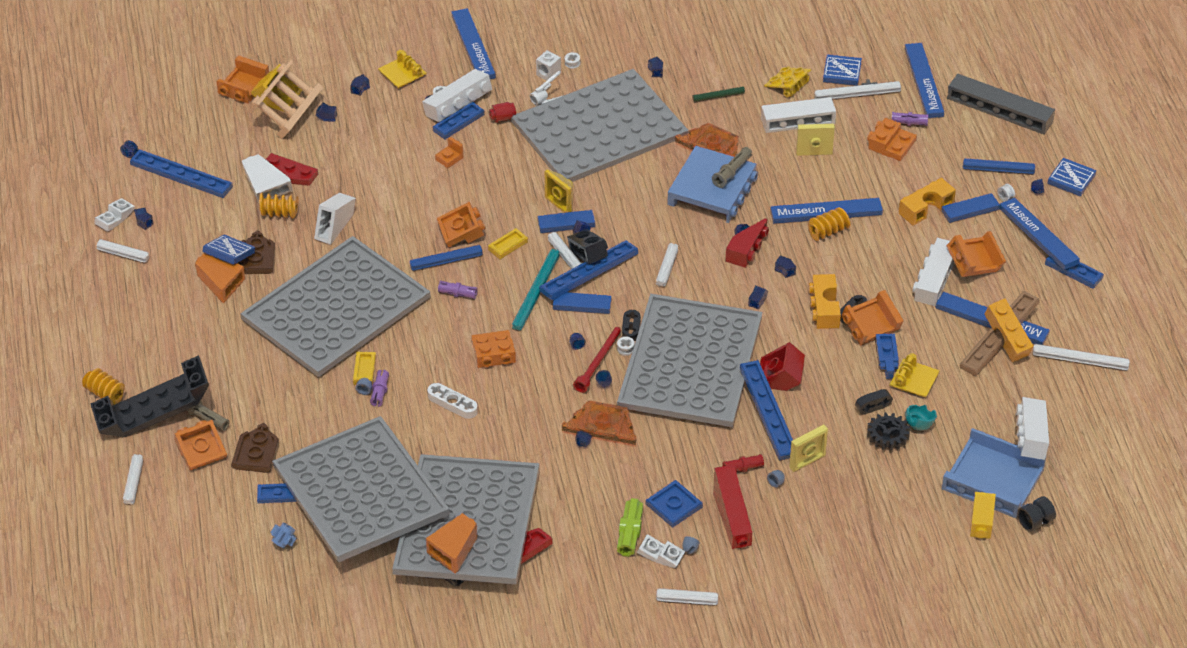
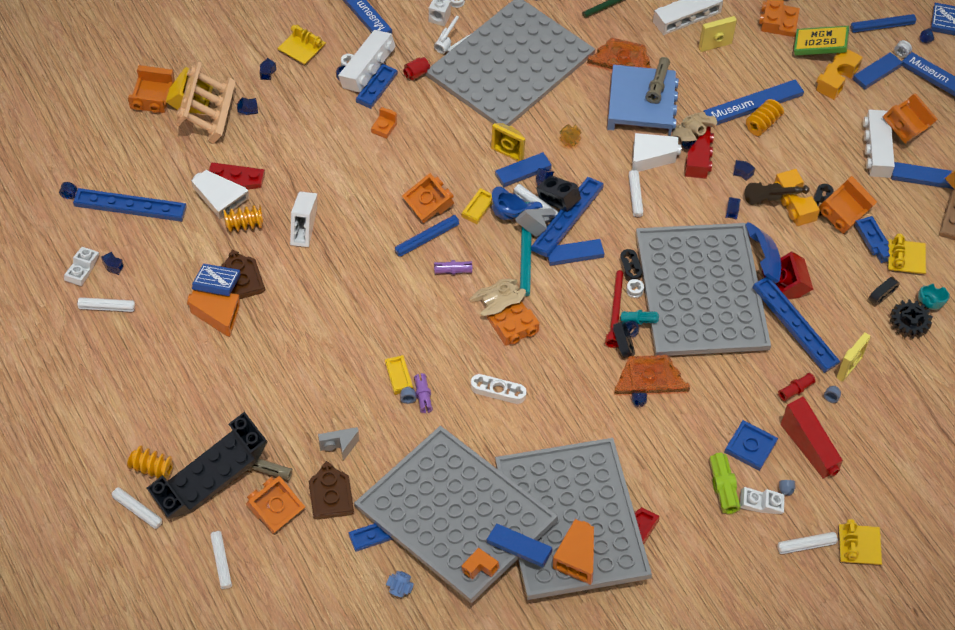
camera: 20 degrees left, 10 degrees up
(77, 420) = (137, 508): none -> white axle
(284, 407) = (342, 439): none -> light grey slope
(335, 306) = (343, 314): light grey plate -> none
(357, 528) = (479, 562): none -> orange piece
(401, 522) = (519, 545): none -> blue tile
(489, 322) = (499, 296): none -> tan piece
(533, 246) = (509, 205): none -> blue piece
(553, 263) = (535, 220): none -> light grey slope
(577, 341) = (588, 294): clear blue hinge -> none
(590, 384) = (624, 339): none -> black beam
(616, 369) = (640, 317): none -> teal axle
(625, 199) = (570, 135): none -> clear yellow gear
(701, 231) = (654, 151): none -> white slope
(738, 609) = (859, 543): none -> yellow hinge
(750, 215) = (693, 125): none -> tan piece
(770, 340) = (772, 263): none -> blue slope
(788, 288) = (756, 193): none -> dark brown piece
(922, 167) = (821, 40): none -> tile

